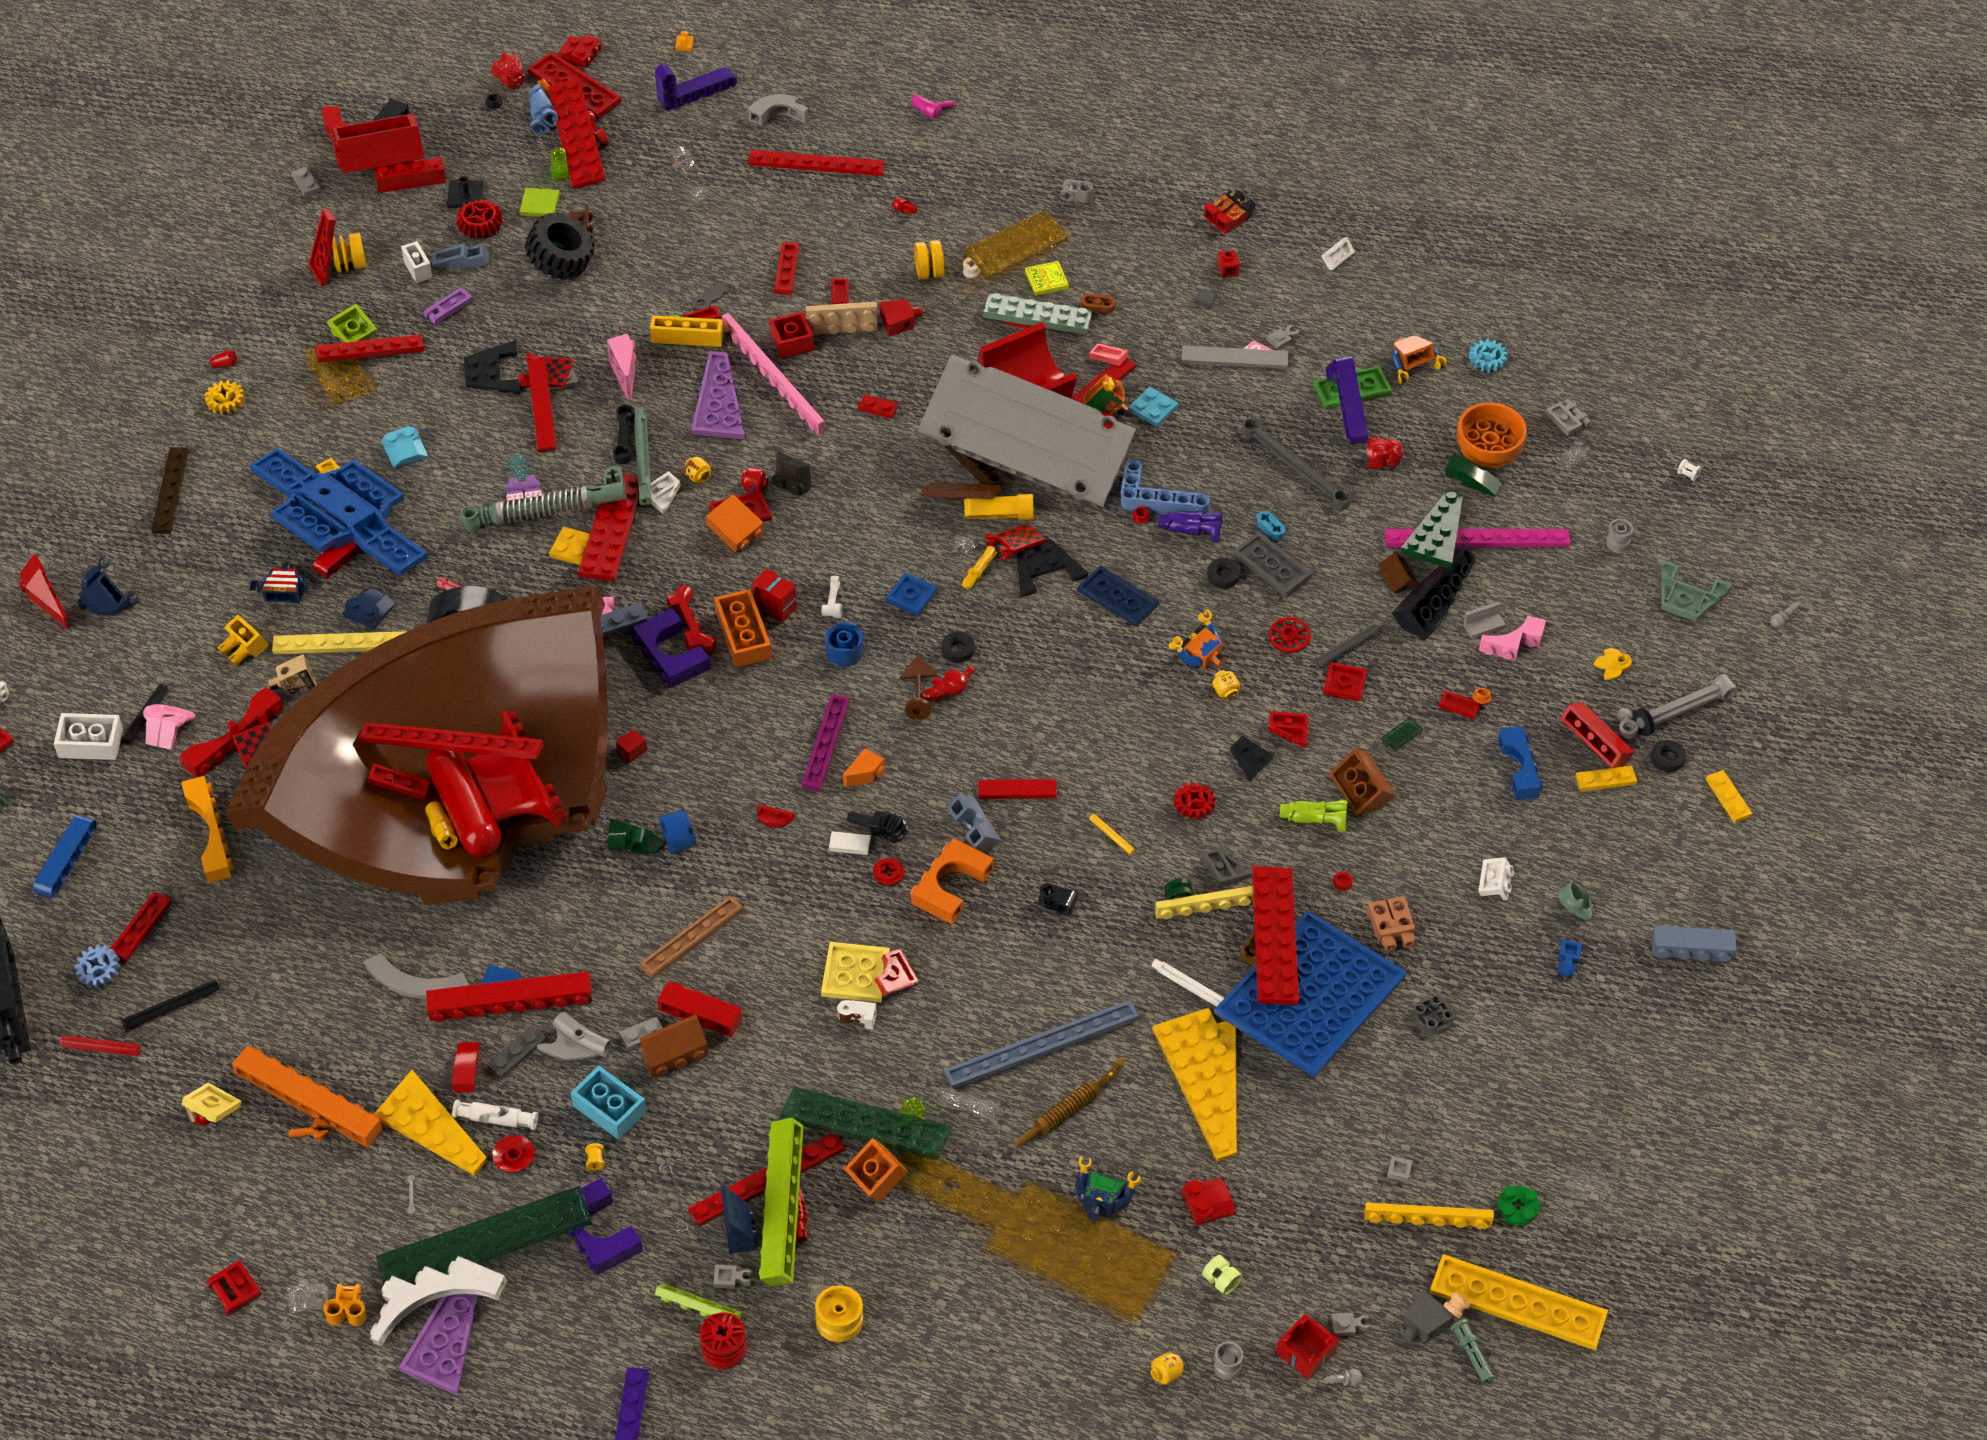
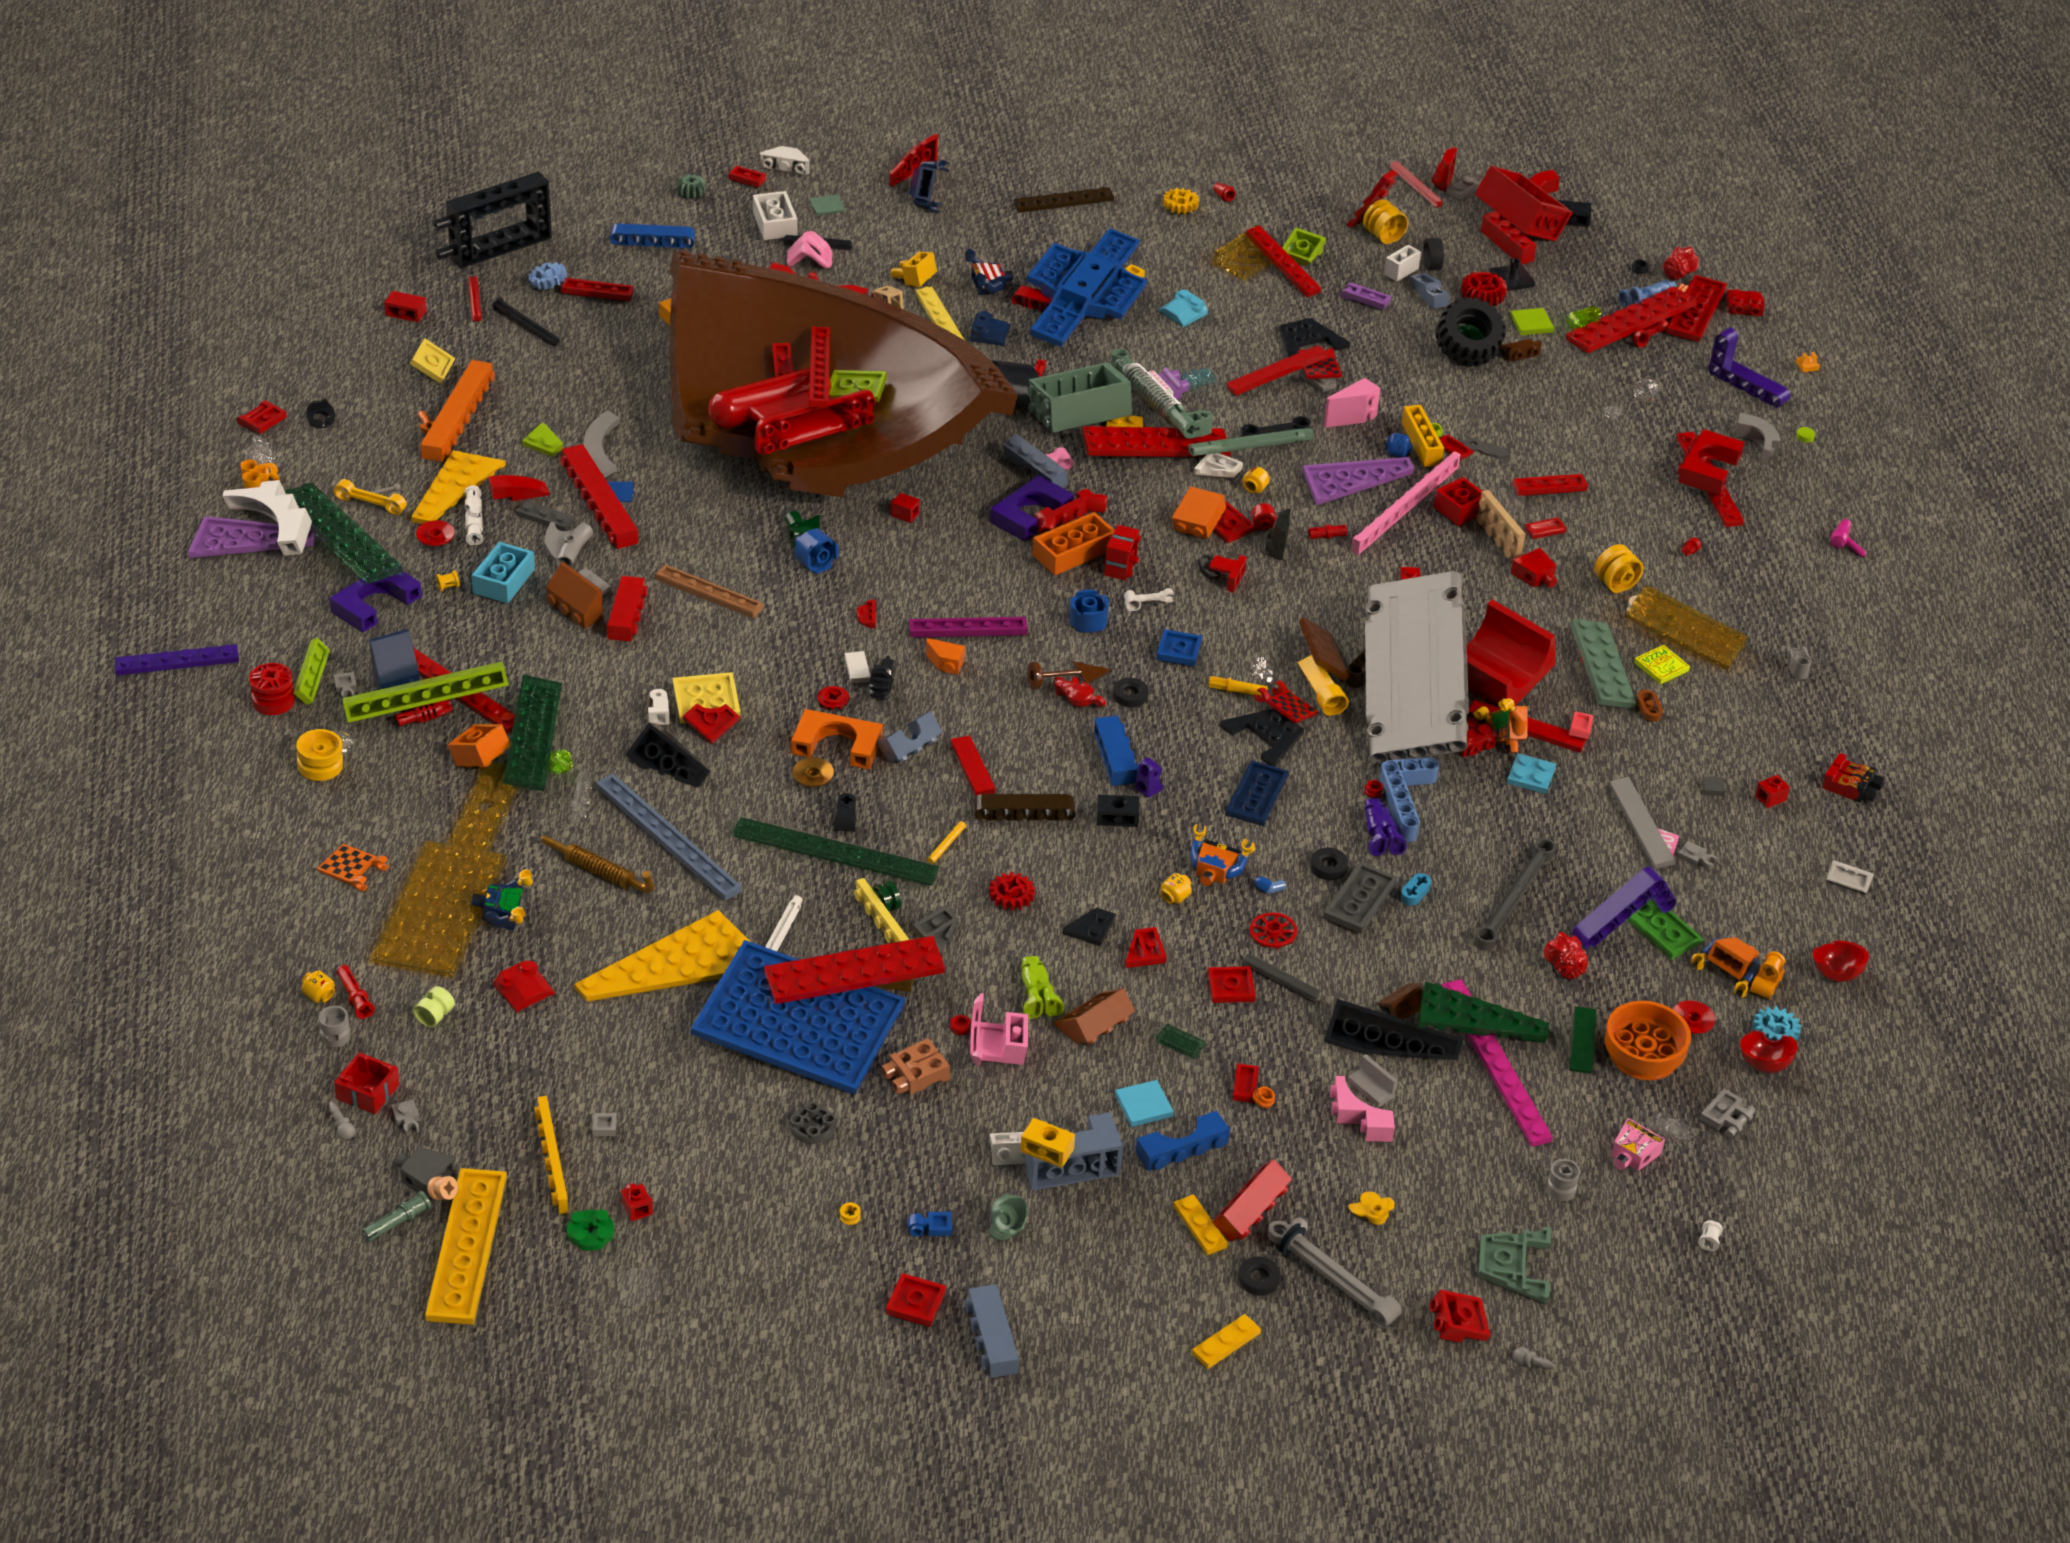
camera: 70 degrees right, 10 degrees down
(76, 689) = (827, 204): none -> sand green piece
(90, 1112) = (405, 306): none -> red brick
(250, 1239) = (320, 407): none -> black piece
(281, 213) = (1416, 184): none -> red axle
(283, 182) = (1445, 169): none -> red slope
(388, 1029) = (543, 441): none -> lime wing
(415, 226) = (1433, 253): none -> black tyre
(446, 1185) = (370, 497): none -> yellow piece
(463, 717) = (851, 381): none -> lime plate
(530, 555) = (1080, 397): none -> sand green container
(690, 353) = (1398, 445): none -> blue head
(782, 80) = (1805, 434): none -> lime tile
(788, 440) = (1327, 531): none -> red pin
(816, 166) = (1709, 446): none -> red arch
(817, 527) = (1220, 564): none -> red piece
(925, 1023) = (664, 753): none -> black wedge
(992, 903) = (813, 772): none -> pearl gold dish
(997, 1318) = (349, 864): none -> orange flag
(1037, 678) = (1115, 750): none -> blue brick
(1087, 660) = (1148, 776): none -> dark purple leg
(1088, 764) = (1024, 806): none -> dark brown beam
(1101, 919) = (836, 851): none -> clear green plate
(1115, 697) = (1118, 810): none -> black brick
(1188, 1337) = (357, 997): none -> red pin
(1236, 623) = (1268, 886): none -> arm
(1376, 855) = (998, 1041): none -> bright pink piece
(1435, 290) = (1841, 960): none -> red cylinder
(1440, 338) = (1769, 975): none -> light orange piece
(1463, 398) = (1697, 1016): none -> red dish
(1465, 778) = (1144, 1103): none -> medium azure tile
(1498, 1162) = (634, 1197): none -> red brick
(1521, 367) = (1768, 1055): none -> red cylinder
(1525, 819) = (1094, 1156): none -> sand blue hinge
(1546, 836) = (1047, 1142): none -> yellow brick
(1546, 1008) = (853, 1208): none -> yellow bush
(1591, 482) = (1636, 1146): none -> bright pink torso
(1648, 988) = (916, 1300): none -> red plate
(1739, 644) = (1459, 1316): none -> red plate

